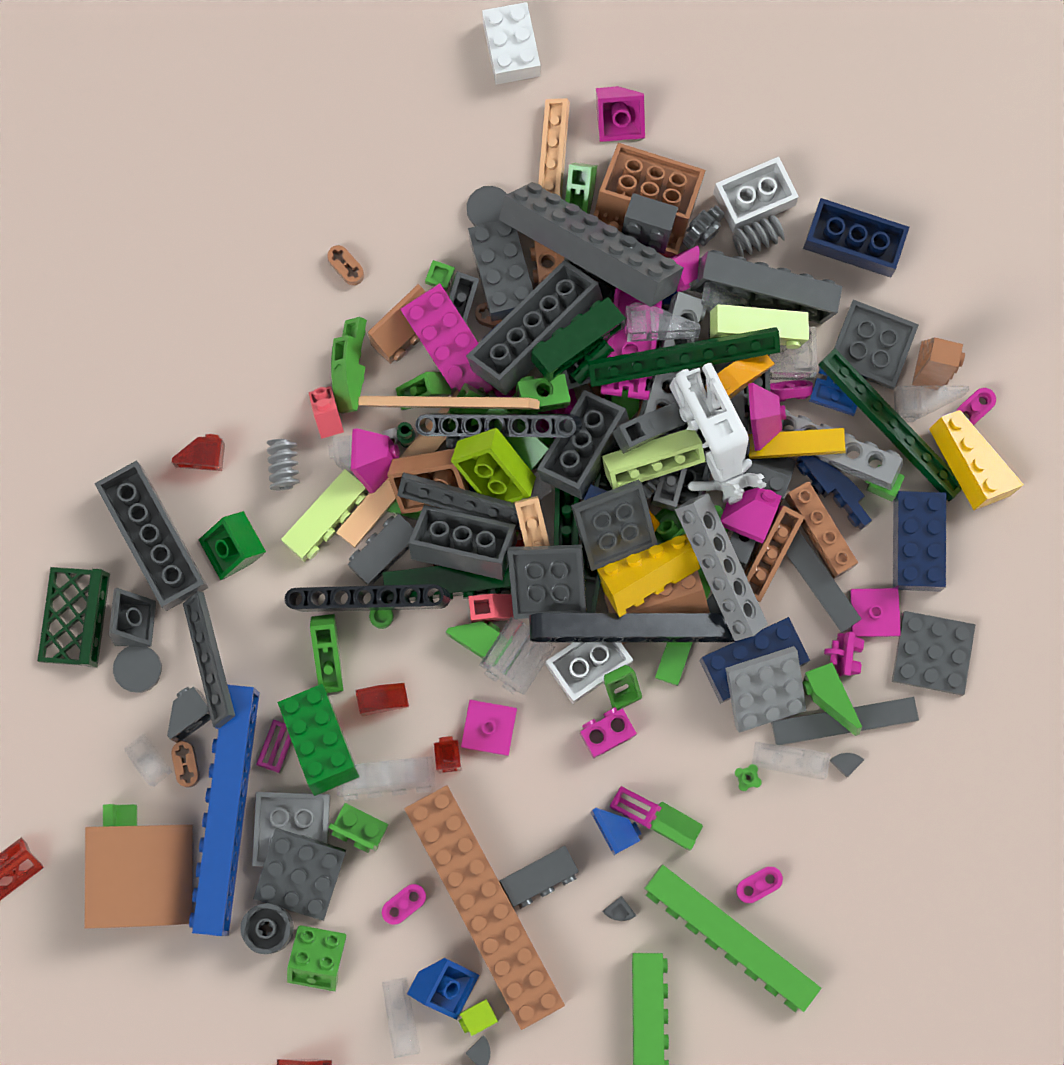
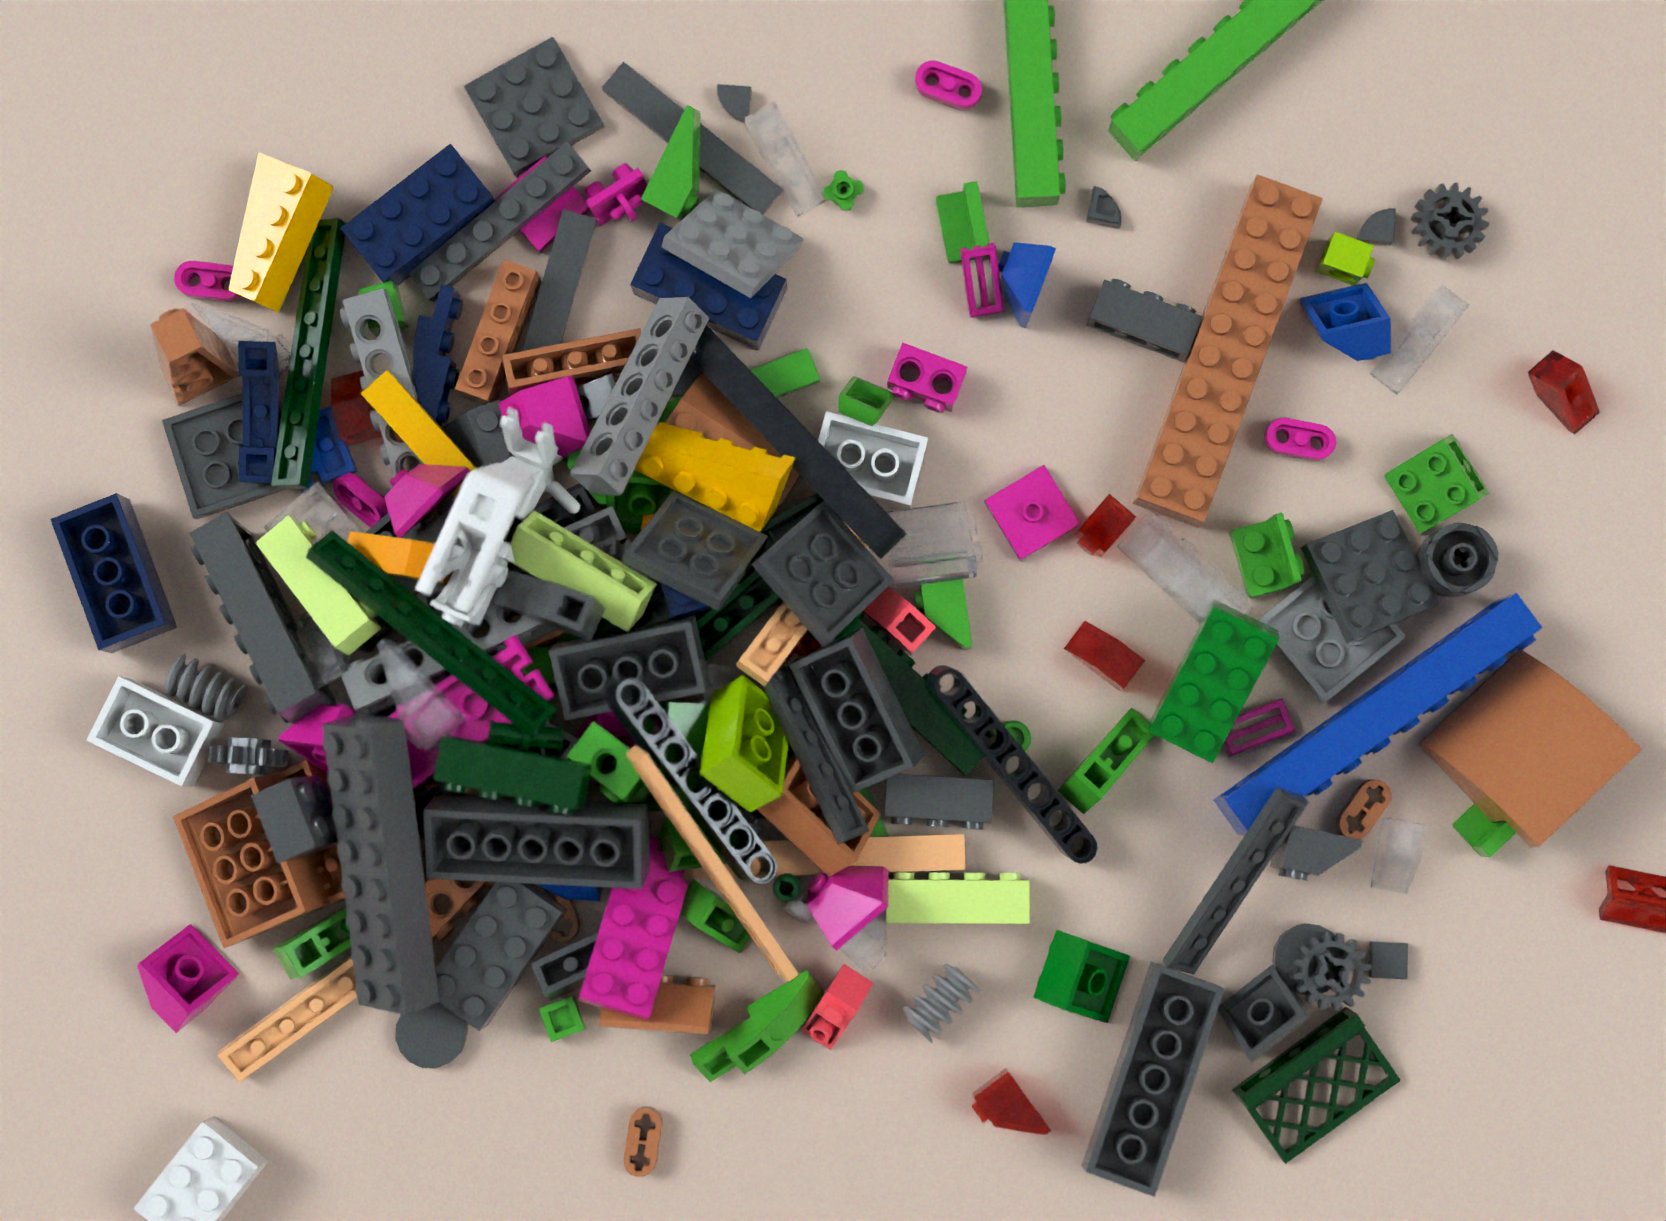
camera: 125 degrees left, 5 degrees up
(100, 709) = (1388, 960): none -> dark grey tile
(122, 661) = (1344, 964): none -> dark grey gear
(842, 418) = (352, 409): none -> clear red slope
(879, 374) = (260, 409): none -> dark blue slope
(882, 580) = (500, 221): none -> dark grey plate

